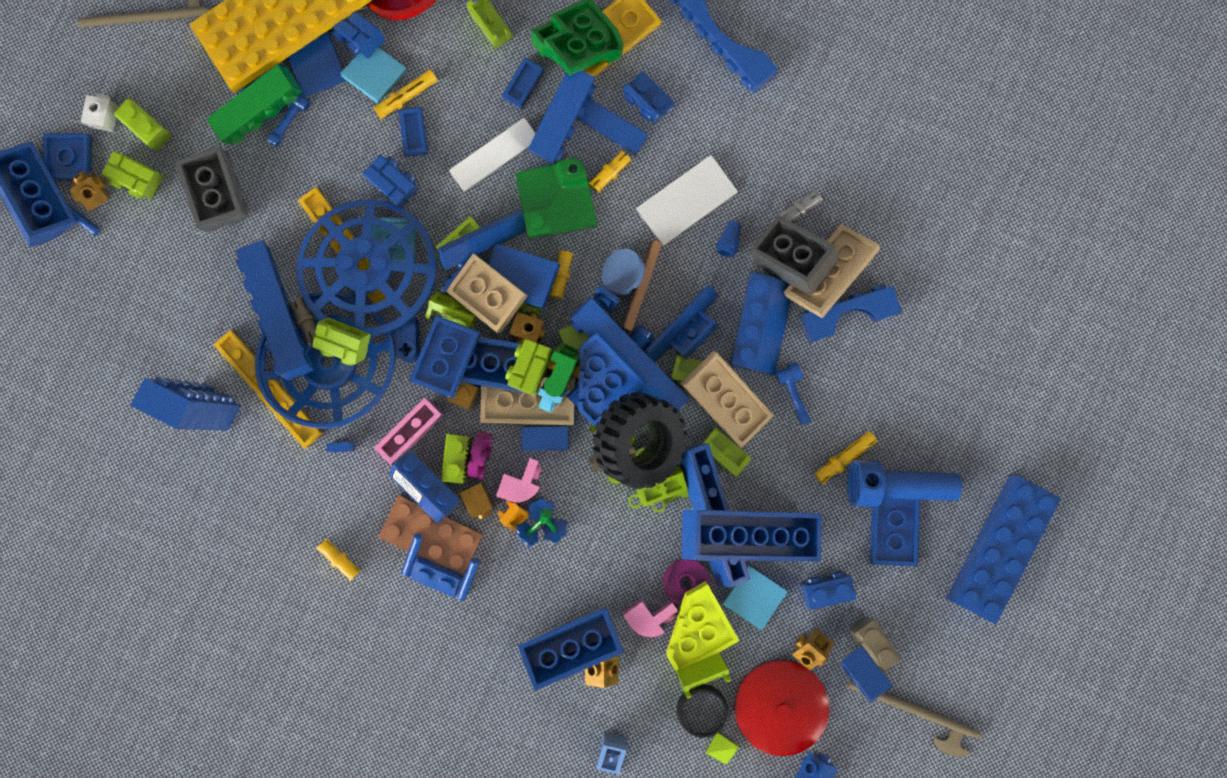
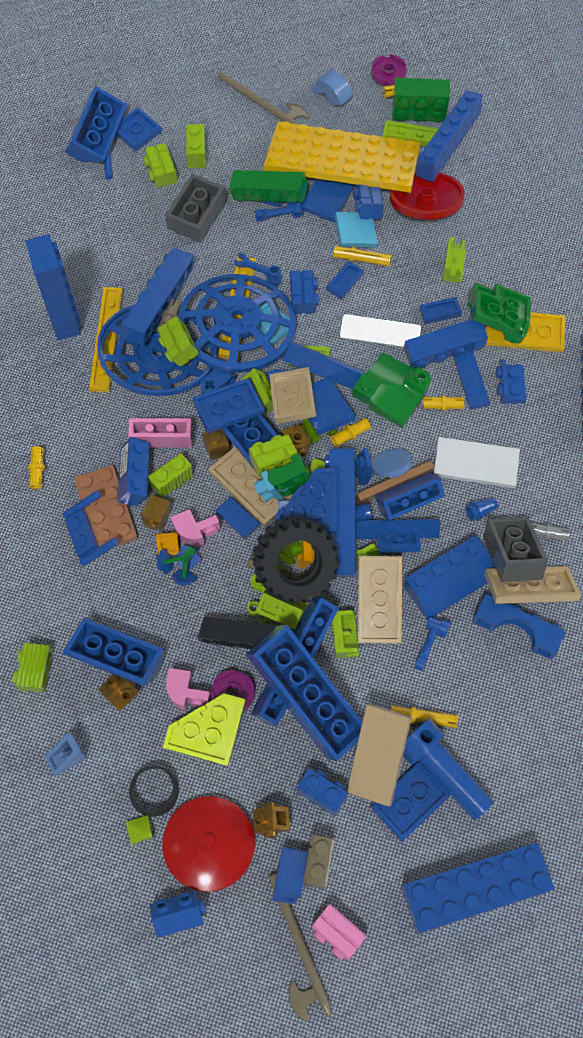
camera: 45 degrees right, 20 degrees down
(89, 190) = (129, 151): pearl gold brick -> none
(99, 112) = (177, 121): white brick -> none
(340, 447) = (110, 405): blue tile -> none
(352, 194) = (272, 273): none -> blue brick
(480, 453) = (187, 484): magenta plate -> none
(516, 717) = (33, 667): none -> lime brick
(648, 535) = (232, 632): none -> black beam
(666, 286) = (410, 496): none -> blue brick
(702, 673) = (179, 761): lime hinge -> none
(755, 598) = (267, 749): medium azure tile -> none
(847, 525) = (379, 754): none -> tan tile
(936, 677) = (338, 932): none -> bright pink brick

